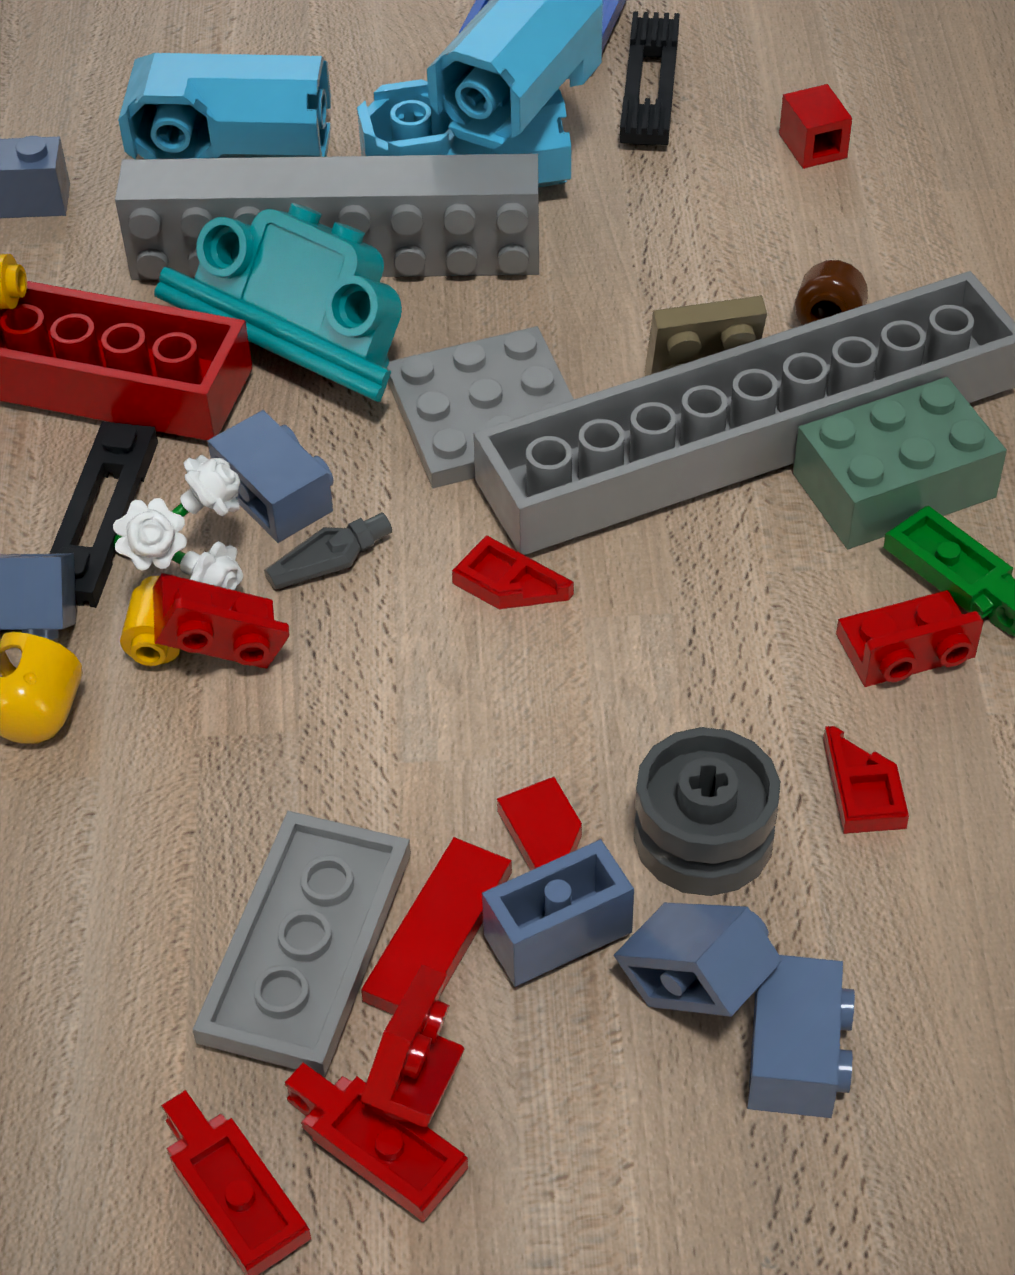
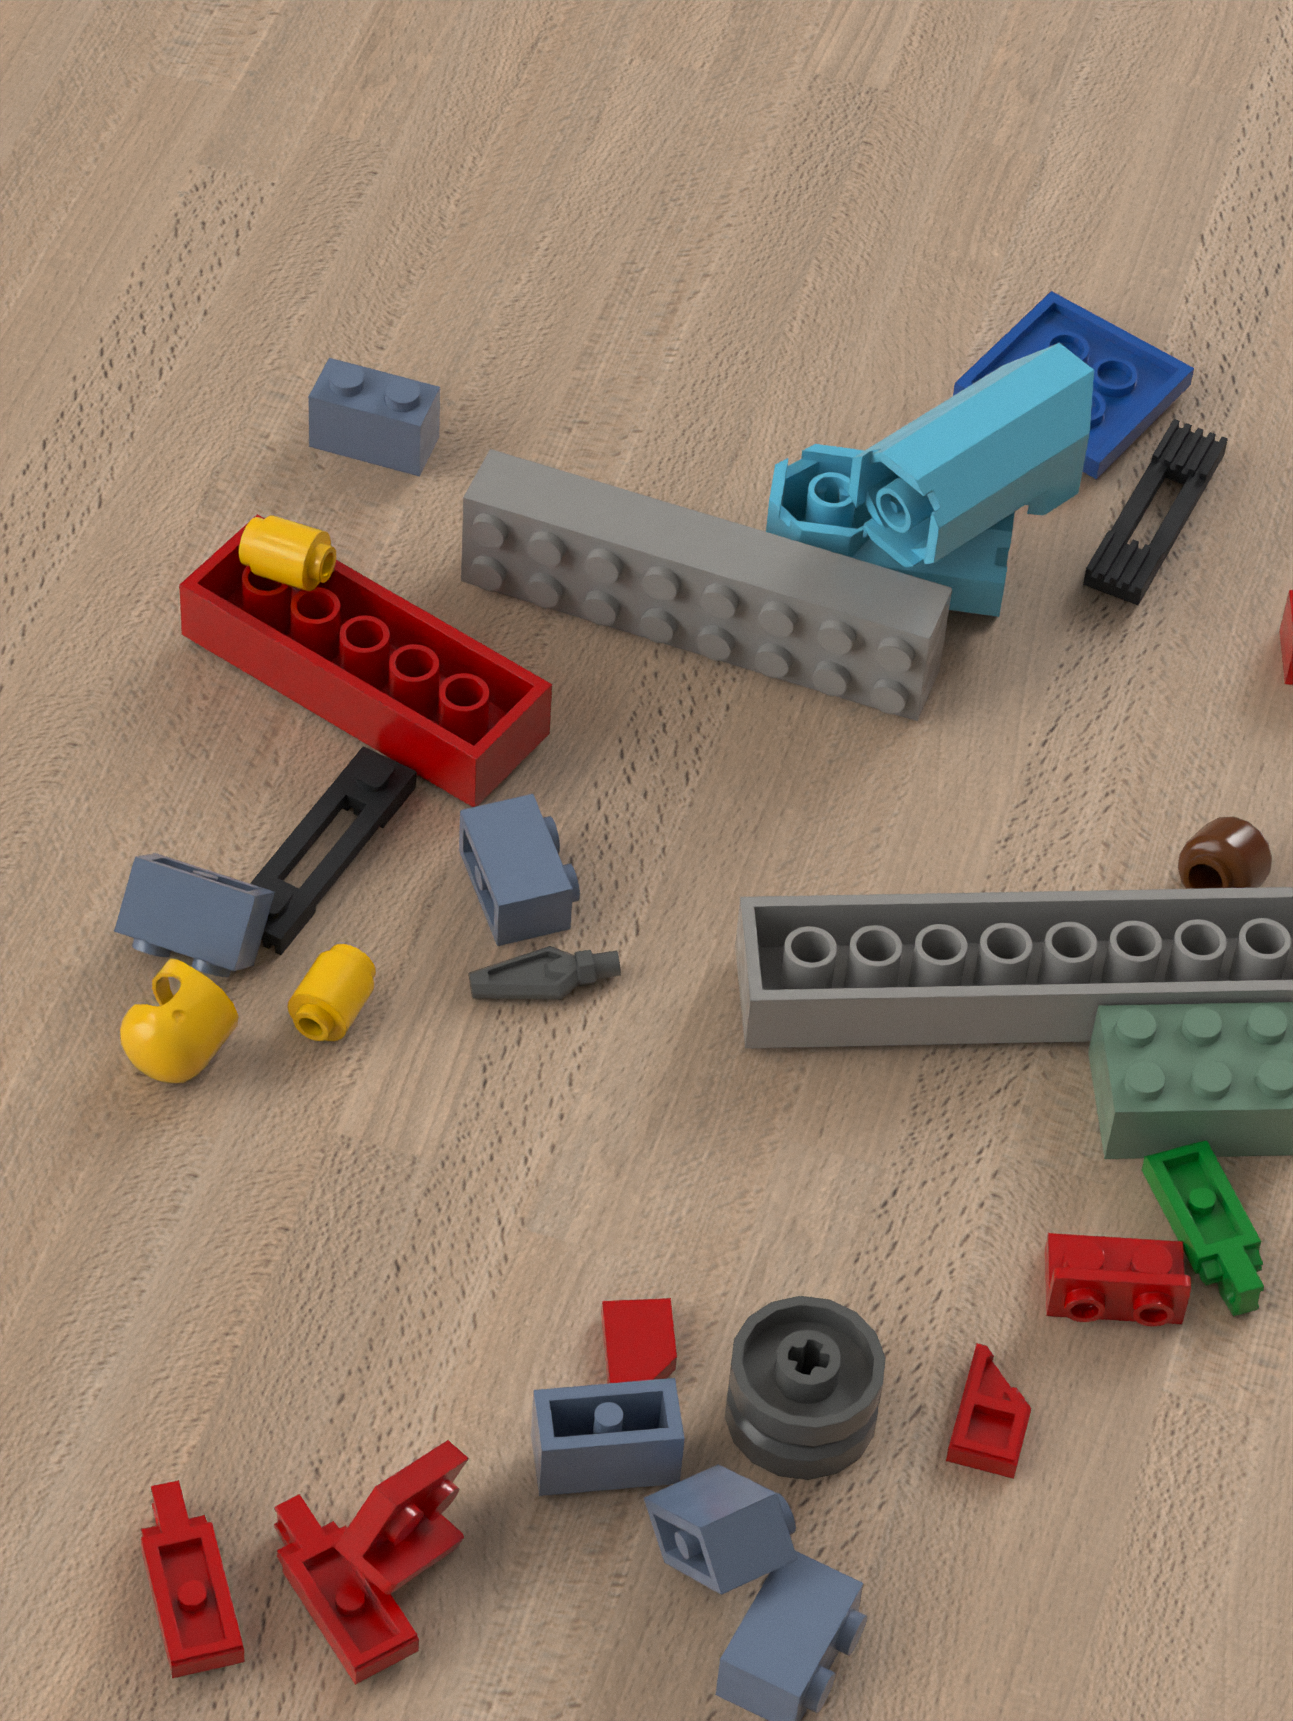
camera: 15 degrees right, 0 degrees up
(153, 533) = (354, 904): white plant -> none
(216, 621) = (392, 1016): red bracket -> none
(226, 106) = (625, 400): medium azure brick -> none
(301, 291) = (623, 670): teal brick -> none
(303, 943) = (351, 1377): light grey plate -> none
(438, 923) = (492, 1405): red tile -> none
(468, 389) = (777, 842): light grey plate -> none
(508, 577) = (721, 1067): red tile -> none
(702, 330) = (1044, 861): dark tan plate -> none

